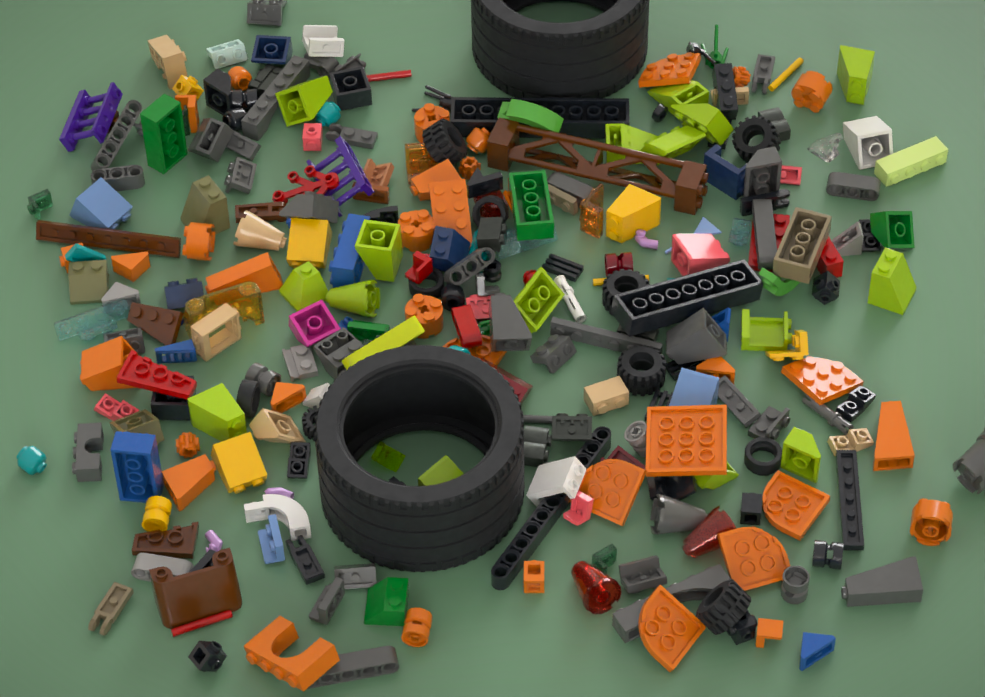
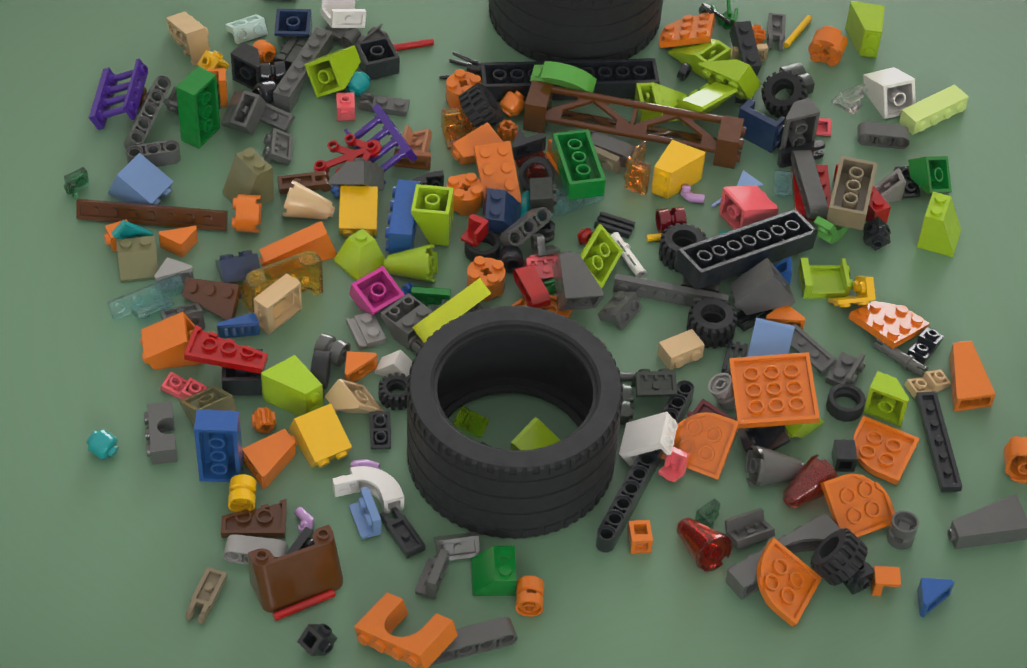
camera: 10 degrees left, 0 degrees up
(820, 554) = (921, 497): black wheel -> none

